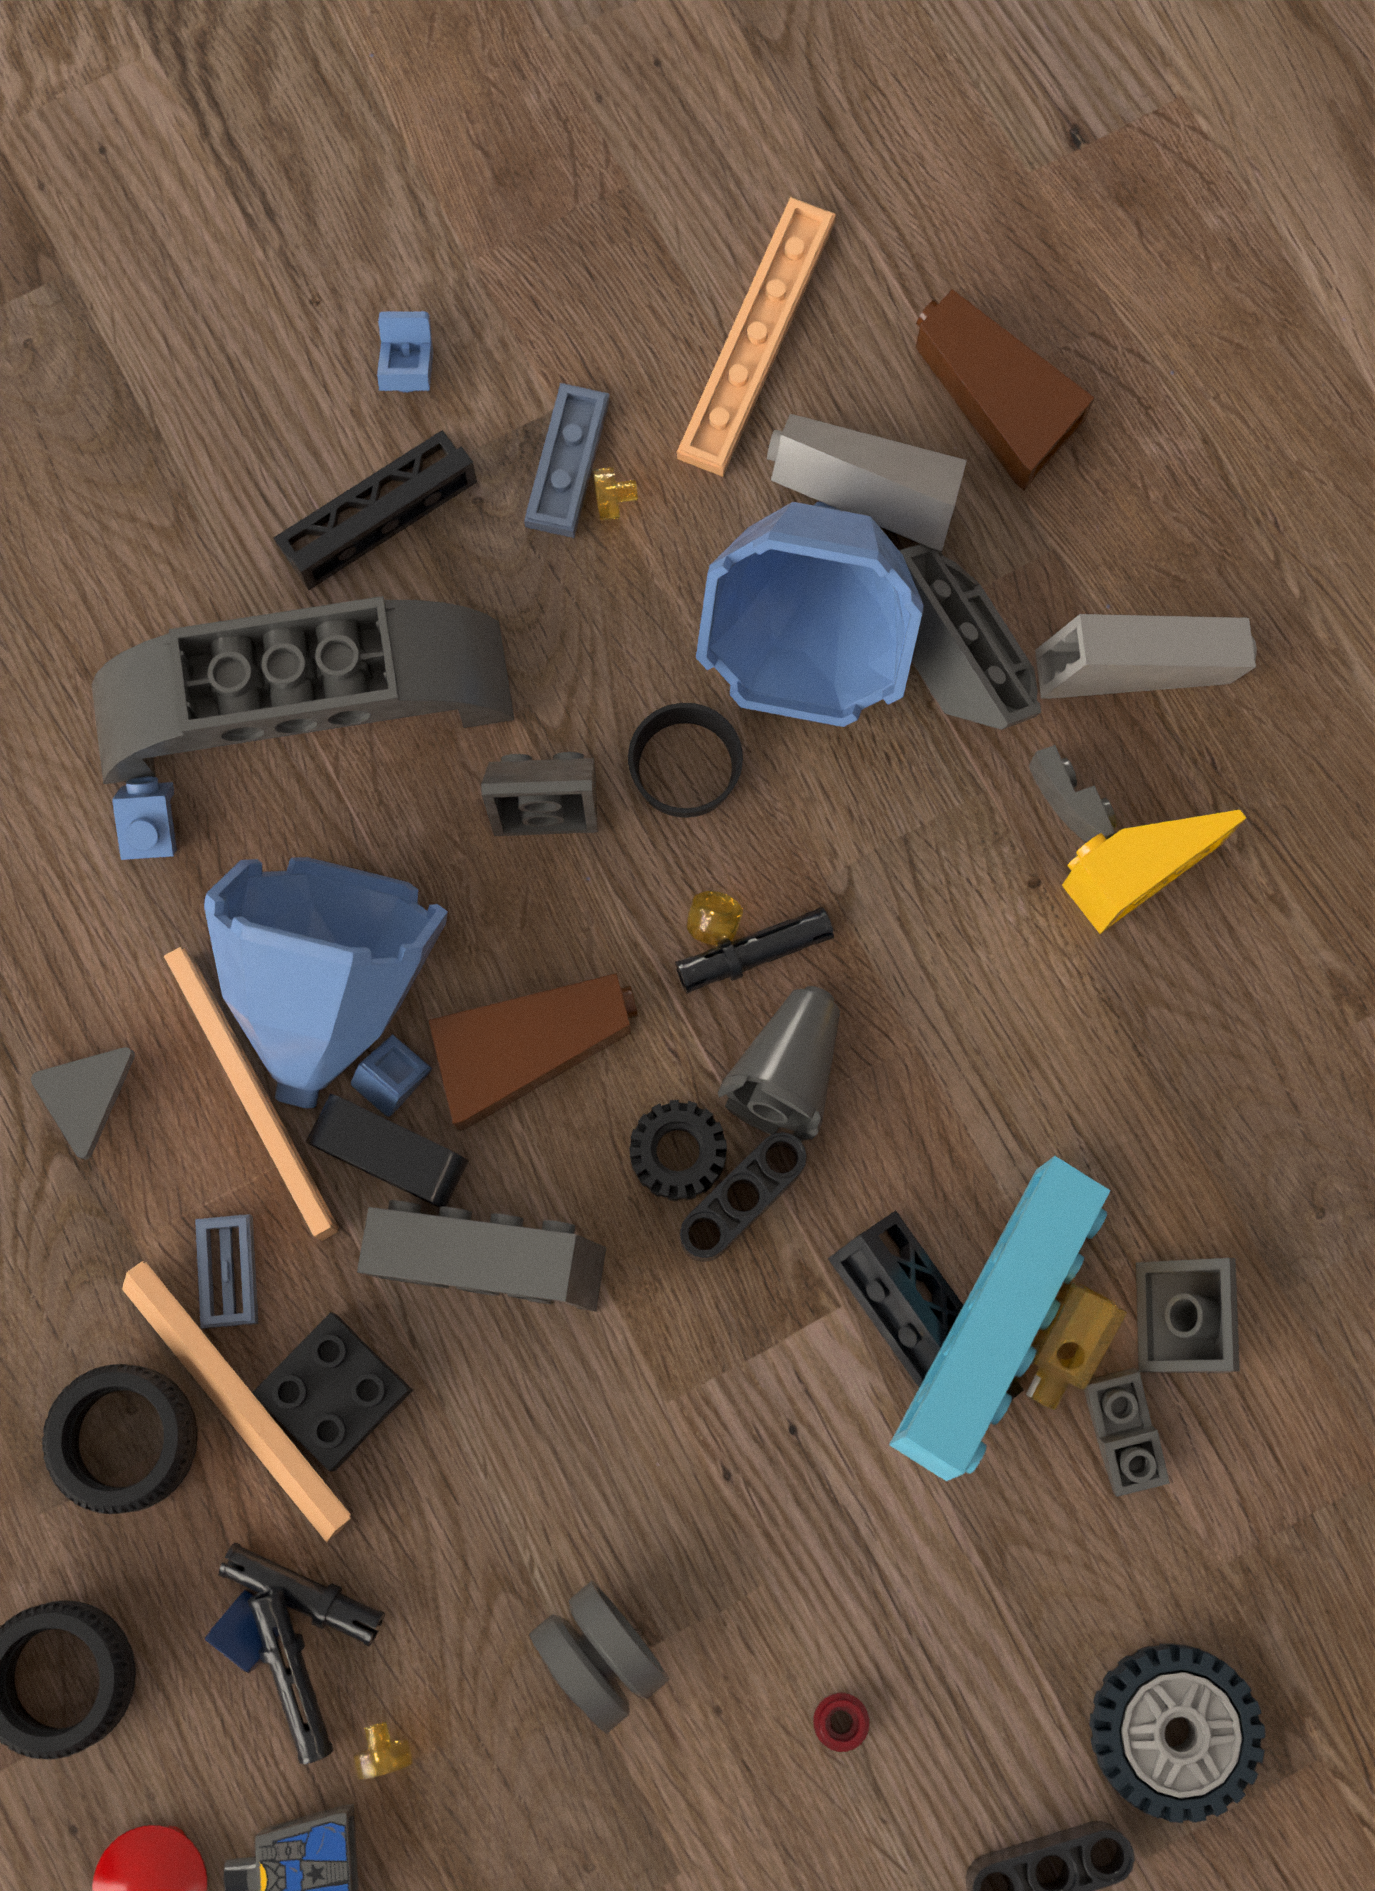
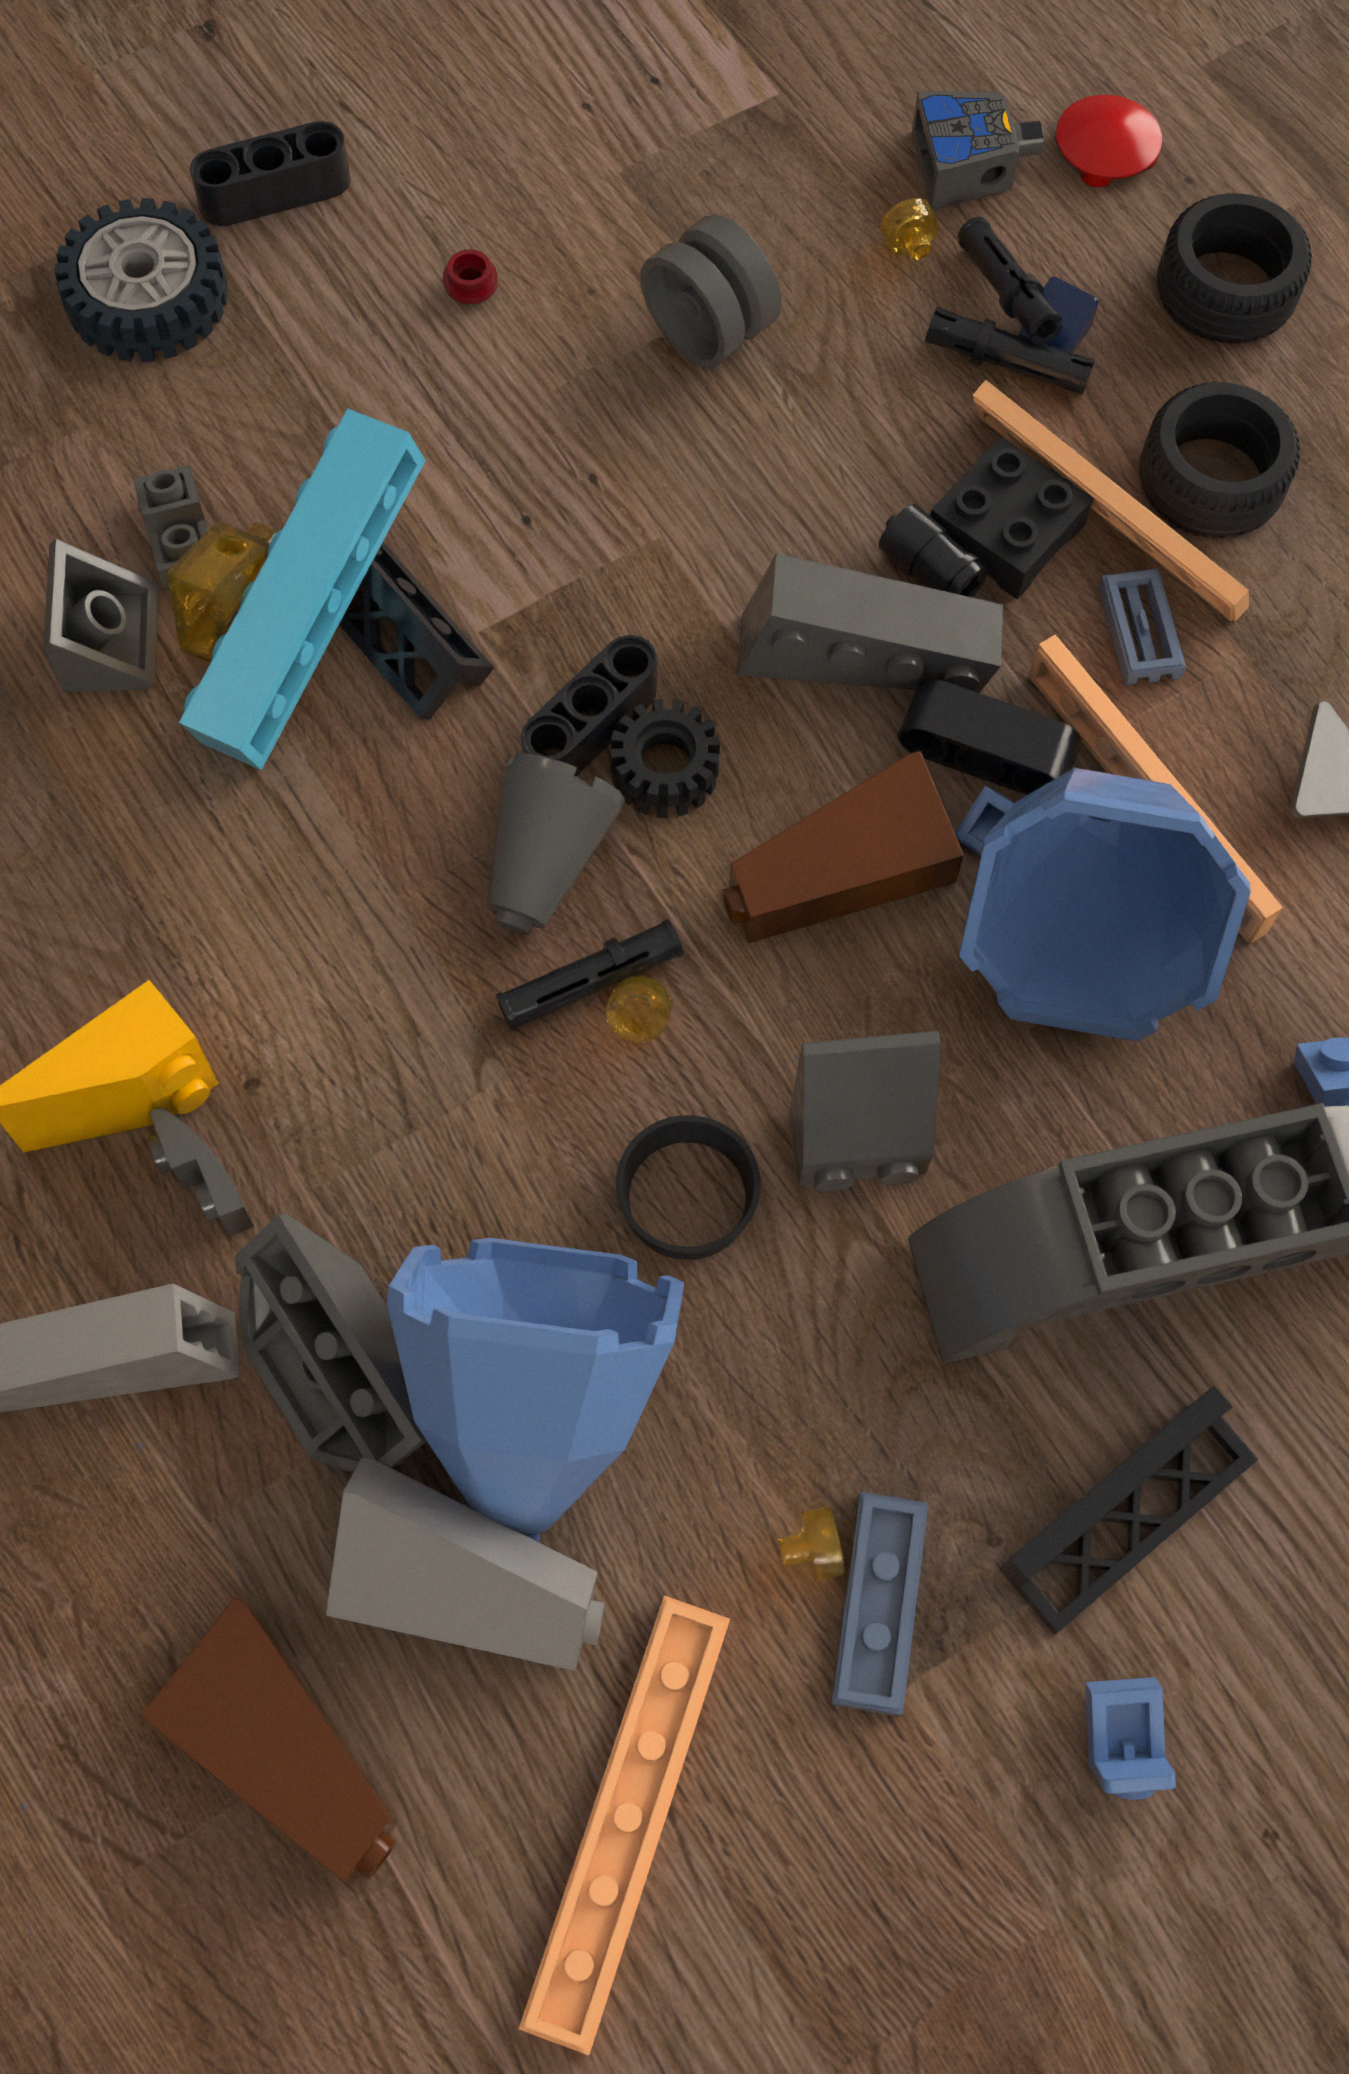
camera: 175 degrees right, 10 degrees down
(414, 1349) = (930, 554): none -> black piece

